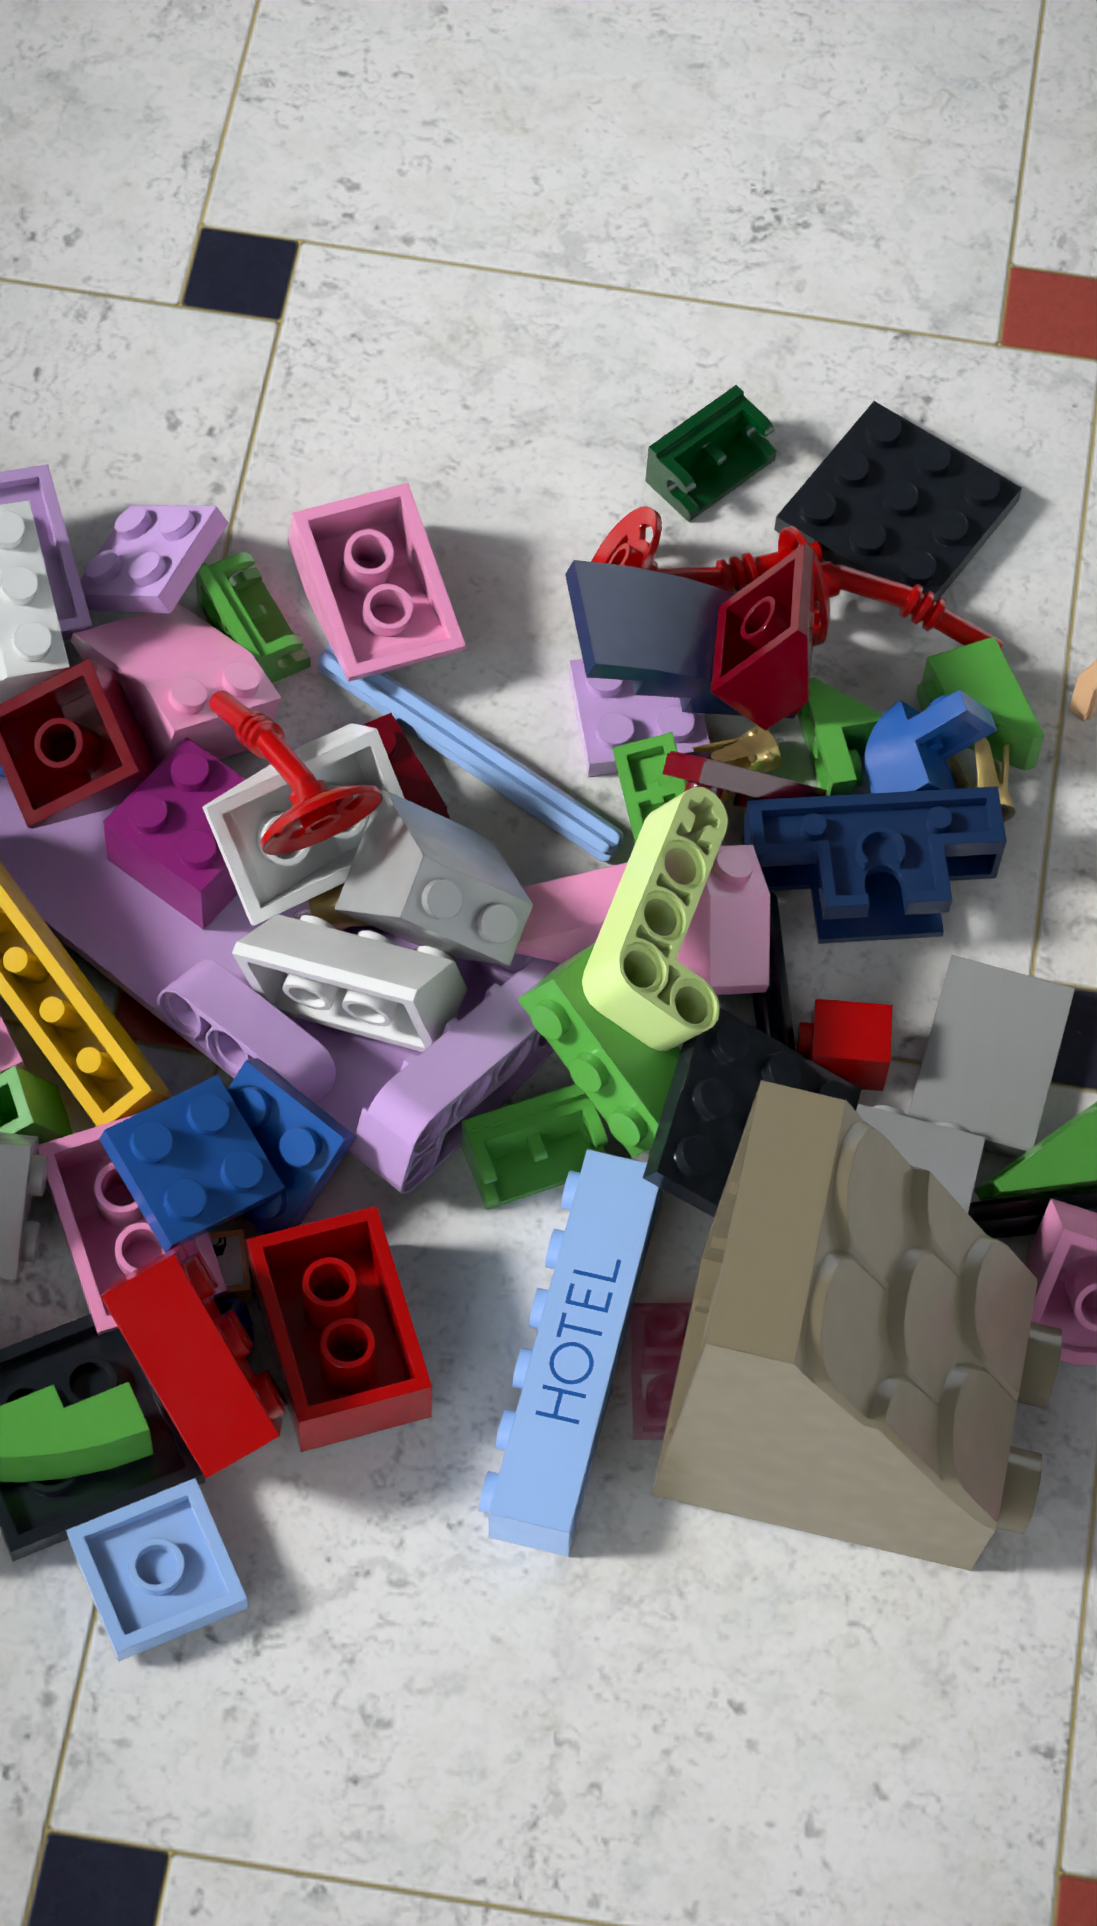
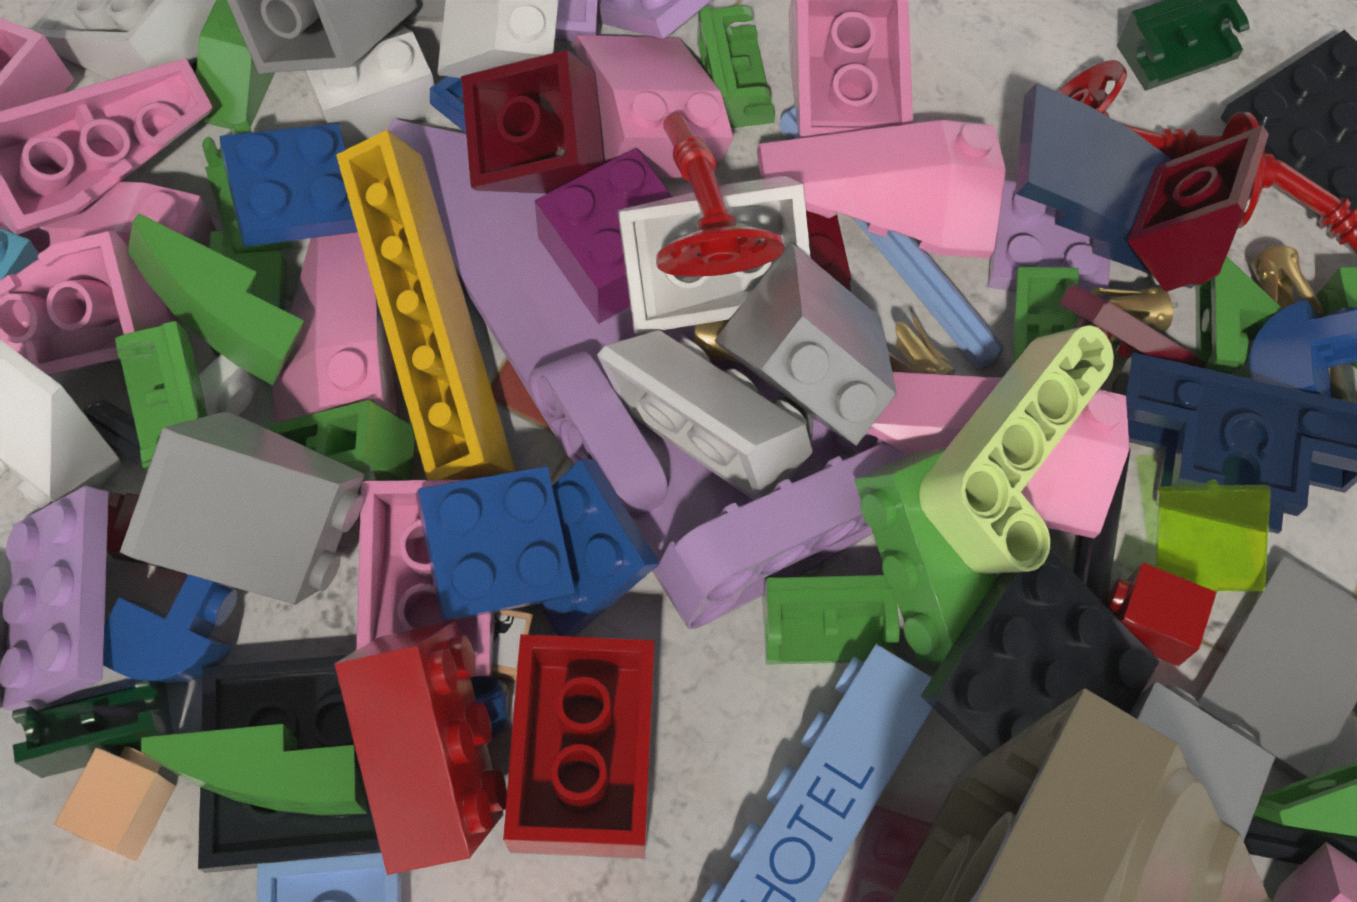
camera: 20 degrees right, 5 degrees up
(482, 688) = (915, 179): none -> bright pink wedge
(539, 864) = (921, 357): none -> pearl gold piece
(876, 953) = (1214, 534): none -> clear neon green piece
(878, 682) = (1277, 272): none -> pearl gold piece

